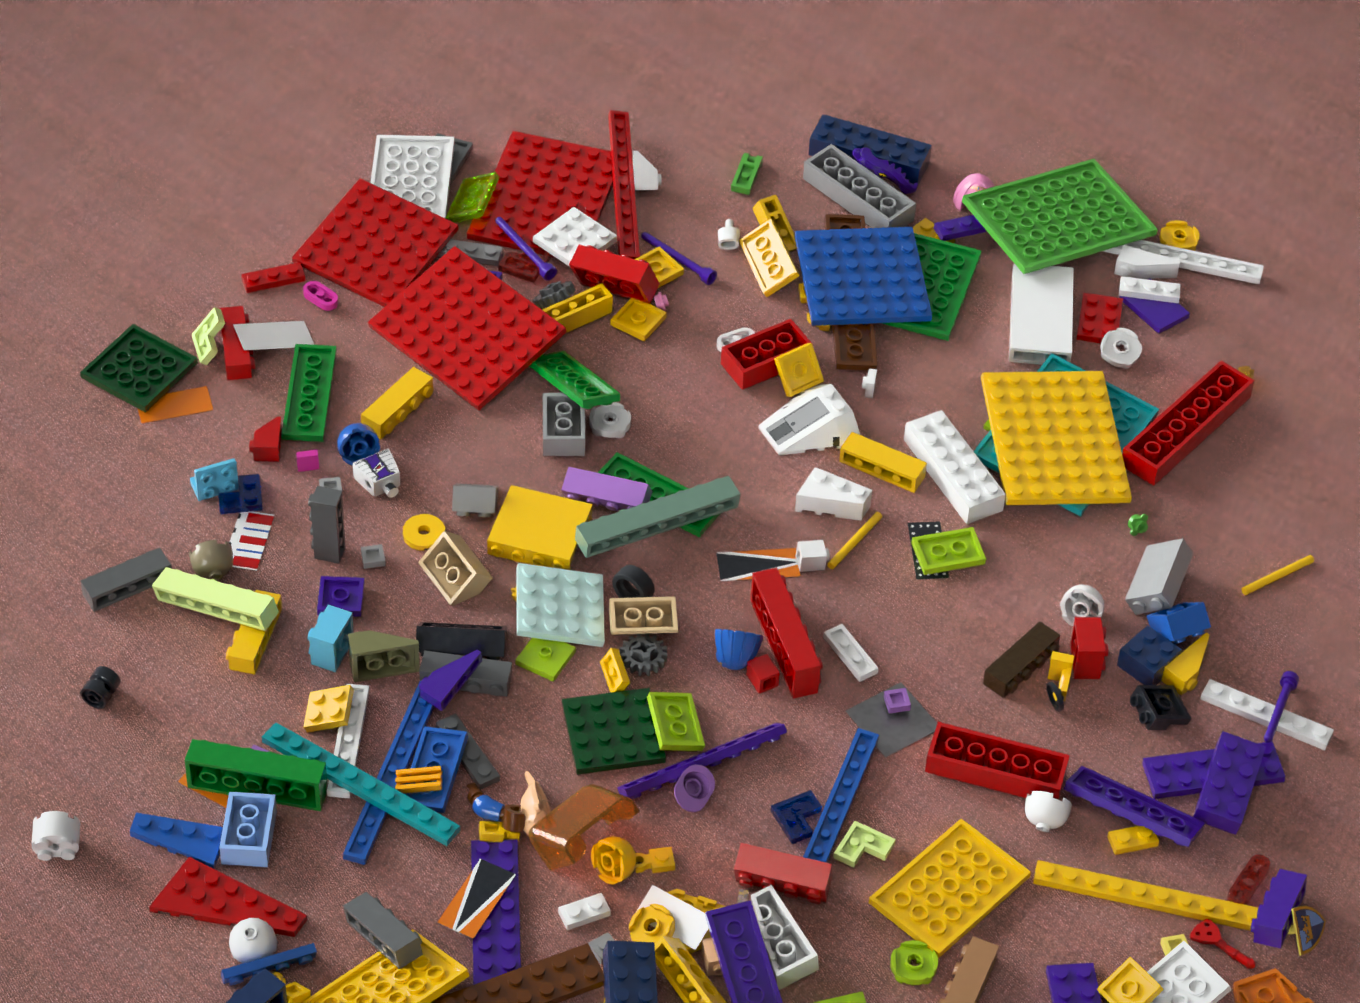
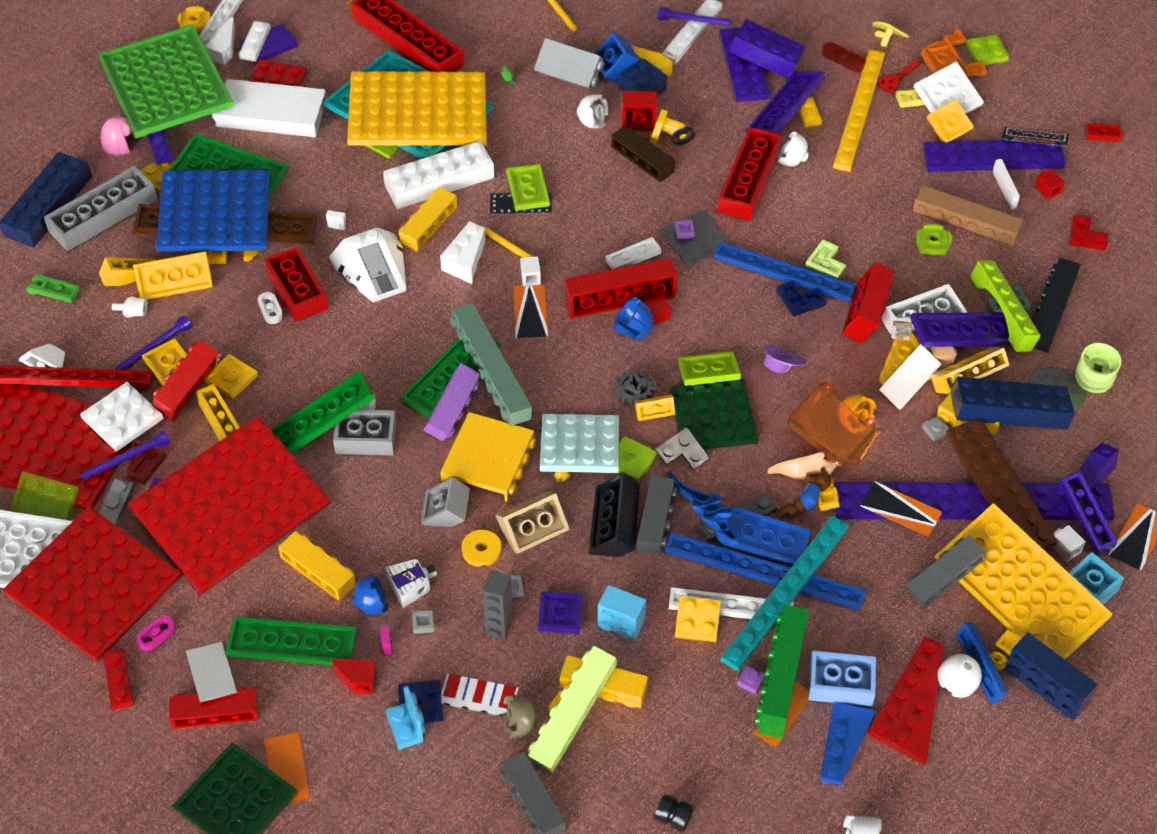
camera: 85 degrees left, 5 degrees up
(205, 333) = (205, 736): yellowish green plate -> none
(381, 655) = (642, 574): olive slope -> none
(418, 776) = (783, 530): light orange tile -> none
(447, 681) = (678, 518): dark purple slope -> none
(462, 711) = (710, 511): none -> blue animal
(553, 294) = (197, 433): dark grey gear -> none
(558, 699) = (685, 445): none -> plate
(584, 911) = (901, 440): white plate -> none
(638, 578) = (564, 387): black tyre -> none
(643, 615) = (604, 382): tan slope -> none
(648, 915) = (907, 395): yellow tile -> none
(657, 860) = (845, 387): yellow plate -> none
(711, 757) = (748, 355): dark purple plate -> none
(799, 369) = (320, 261): yellow plate -> none
(884, 170) = (81, 185): dark purple animal -> none
(949, 887) = (863, 214): yellow plate -> none
(1119, 358) = (311, 66): white plate -> none
(1159, 706) = (690, 82): black plate -> none
(1275, 914) = (876, 37): dark purple brick -> none

